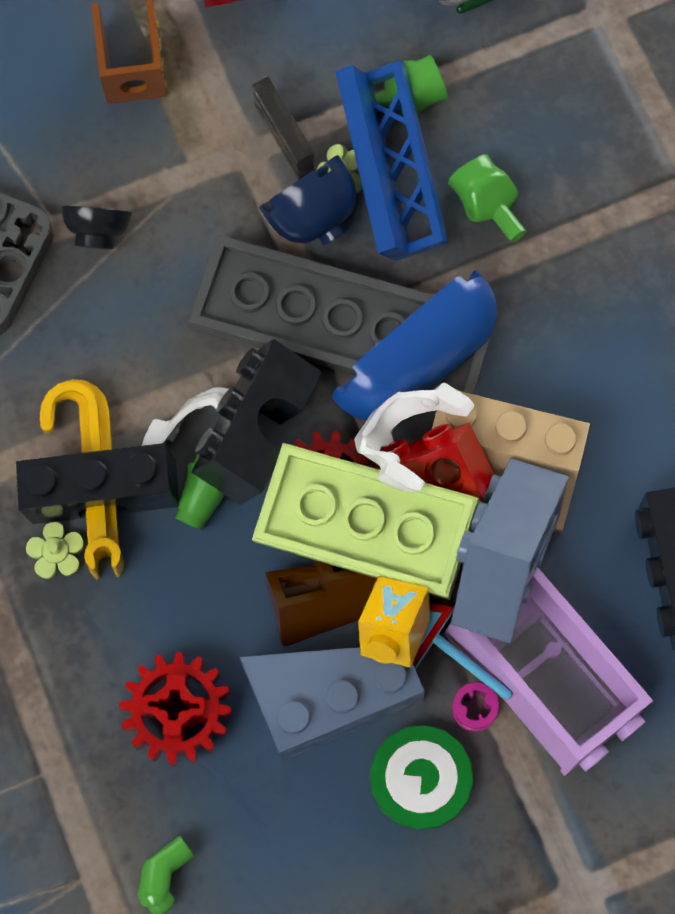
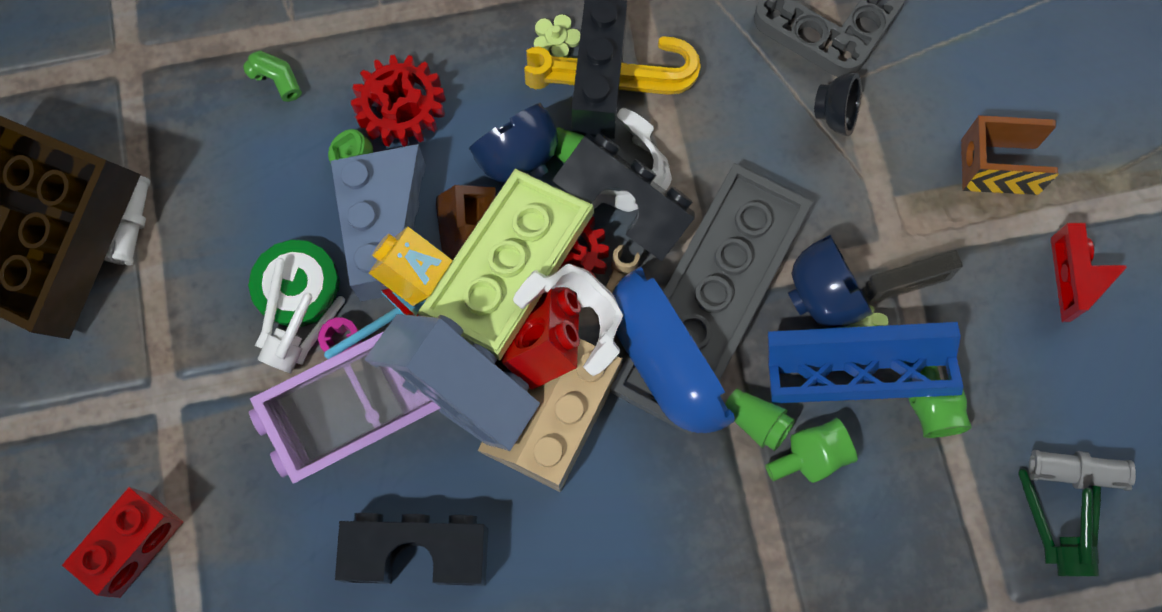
camera: 100 degrees right, 0 degrees up
(213, 553) = (520, 144): none -> dark blue cylinder
(249, 752) = (349, 144): none -> bright green tile
(331, 423) = (620, 269): none -> tan hand
(467, 249) = (760, 419): none -> bright green cone
(501, 761) = (282, 347): none -> white plant

